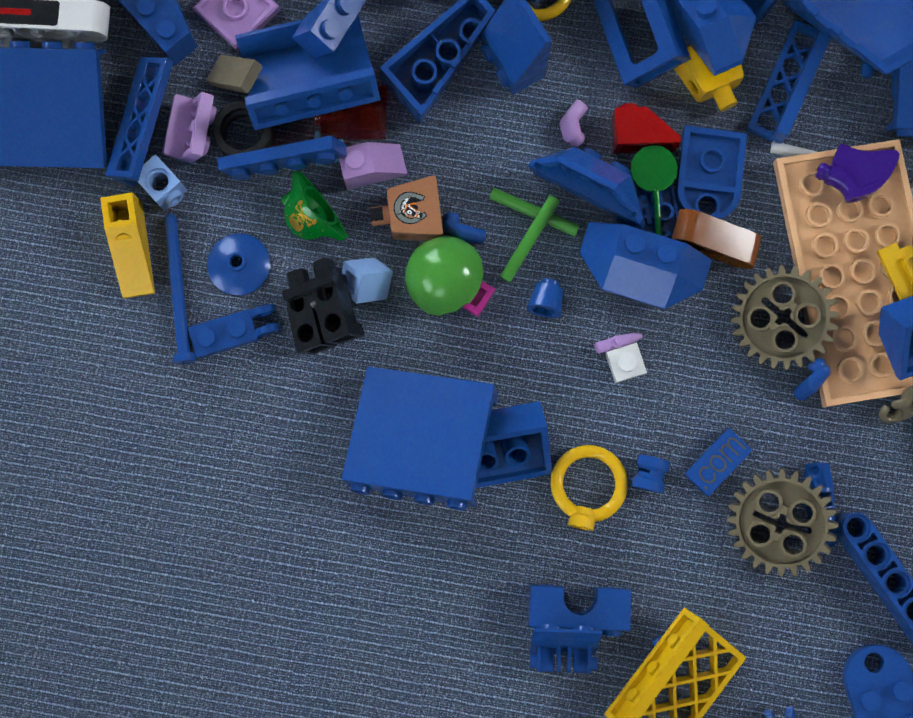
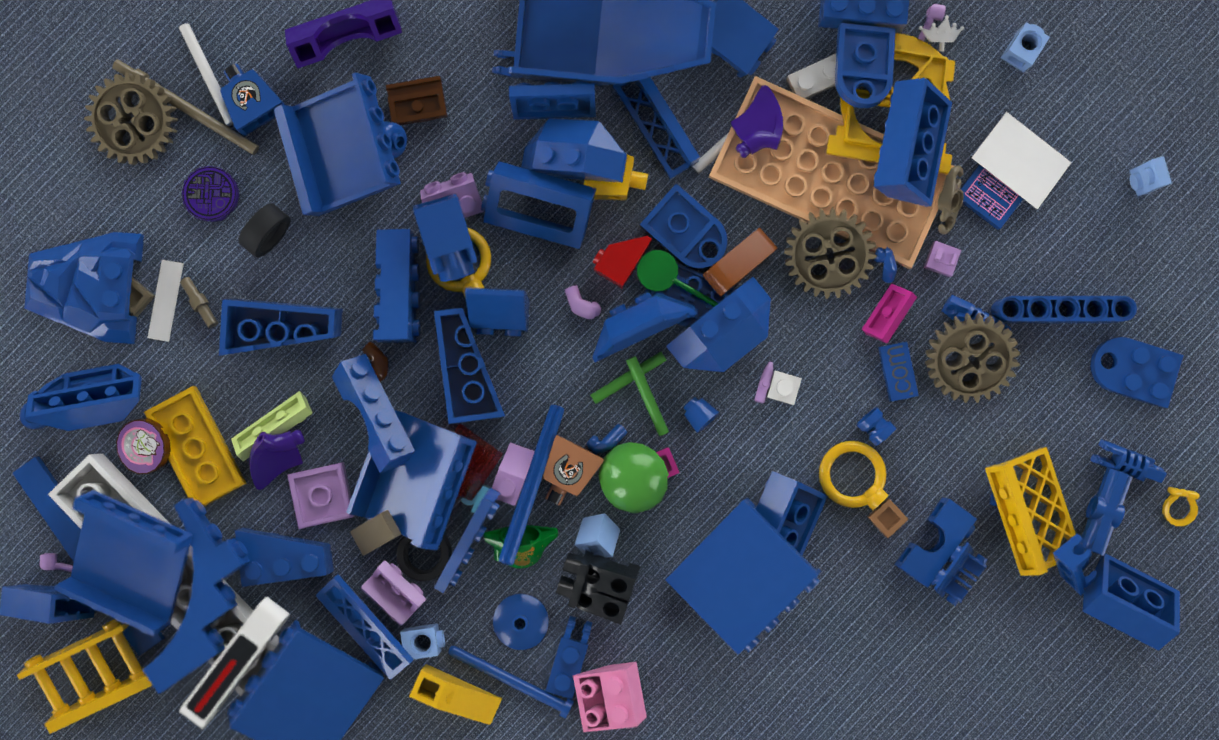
camera: 55 degrees left, 5 degrees up
(221, 391) = (610, 697): none -> bright pink slope
(370, 182) = (531, 485): none -> blue axle
(570, 545) = (887, 518): none -> medium nougat plate
(767, 414) = (889, 313): none -> dark pink plate
(855, 433) = (942, 259): none -> lavender tile

